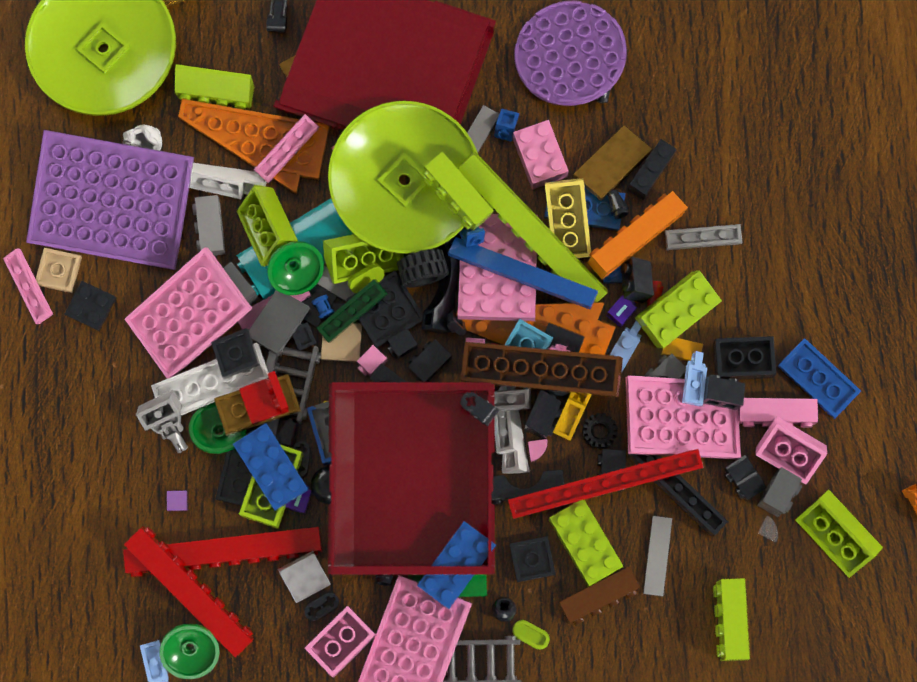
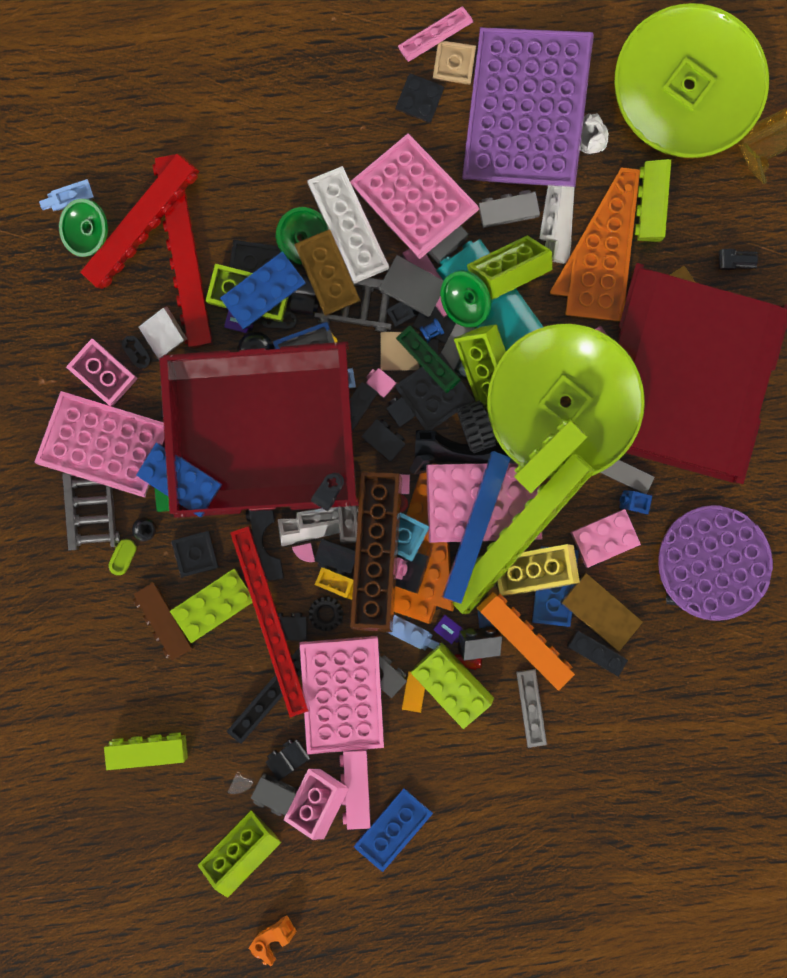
camera: 85 degrees right, 10 degrees up
(164, 418) = (308, 182): light grey brick -> none
(176, 500) = (230, 202): medium lavender tile -> none
(235, 353) = (375, 246): black plate -> none
(264, 399) = (330, 278): red bracket -> none
(286, 148) = (593, 280): bright pink tile -> none
(364, 277) = (463, 370): lime tile -> none
(472, 237) = (508, 474): blue bracket -> none
(617, 205) = (555, 619): black cone -> none
(657, 556) = (206, 676): light grey tile -> none
(695, 380) = (378, 705): light blue hinge -> none
(724, 392) = (369, 733): black brick -> none
(744, 357) = (407, 754): black brick -> none

